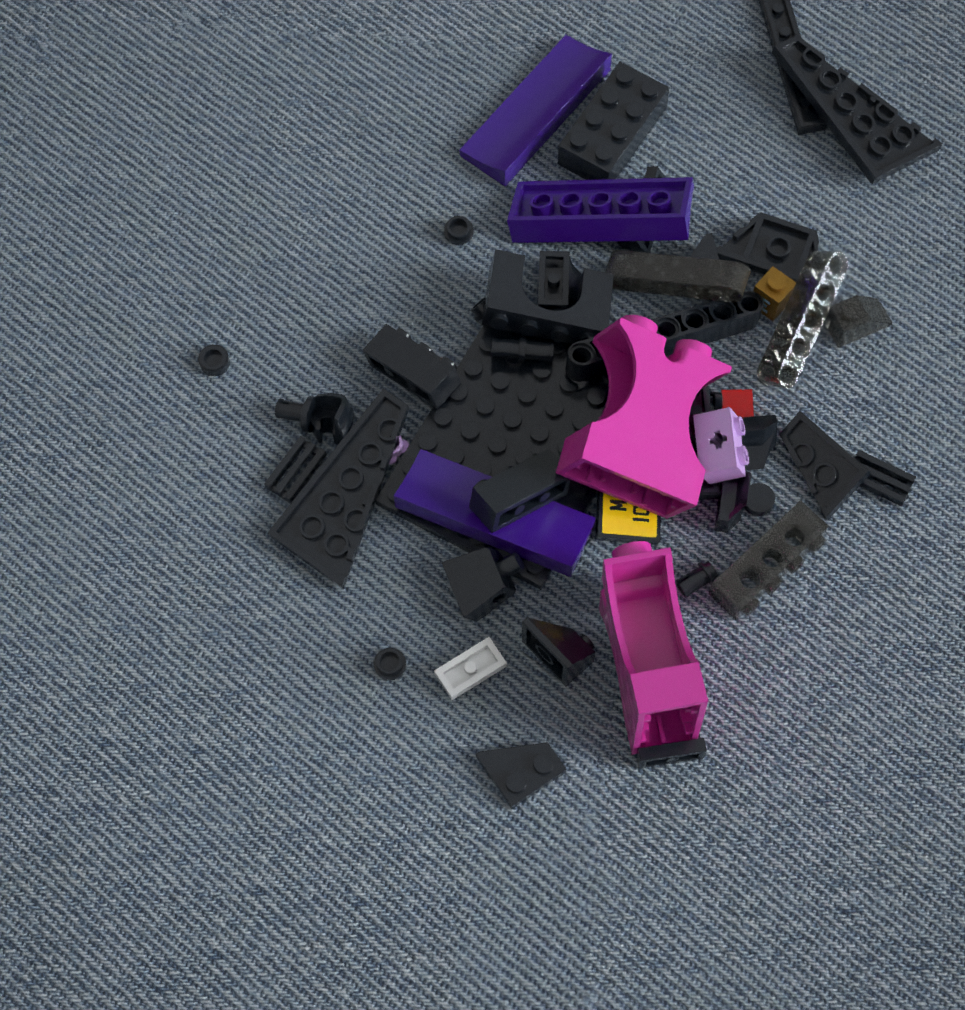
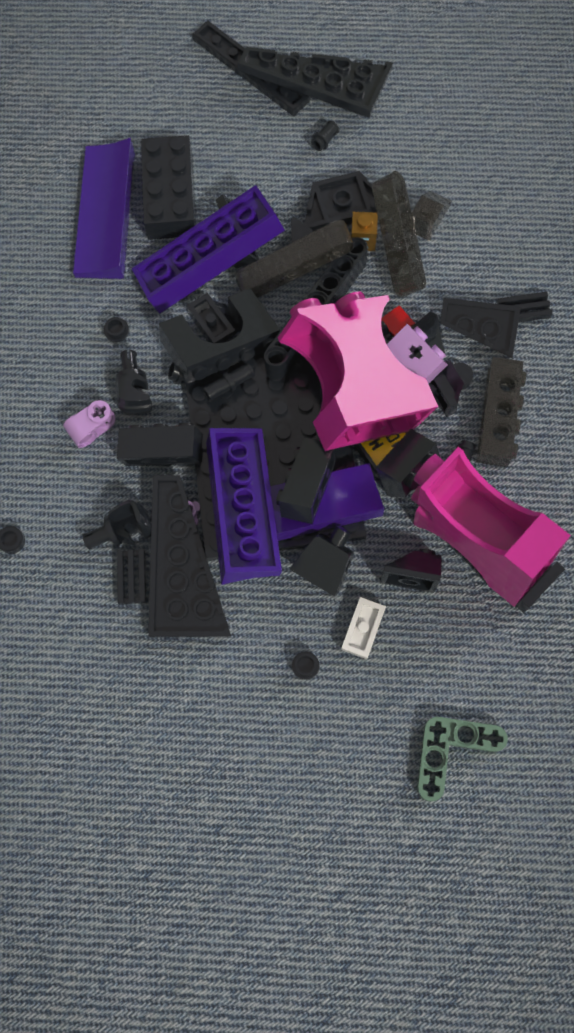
camera: 35 degrees left, 5 degrees up
(364, 303) = (87, 424): none -> lavender piece
(417, 302) = (130, 399): none -> black piece
(442, 469) = (242, 504): none -> dark purple arch
(470, 828) = (450, 738): none -> sand green beam
(521, 770) = (451, 672): black wing -> none
(625, 529) = (403, 463): none -> black slope
(809, 174) = (324, 136): none -> black pin

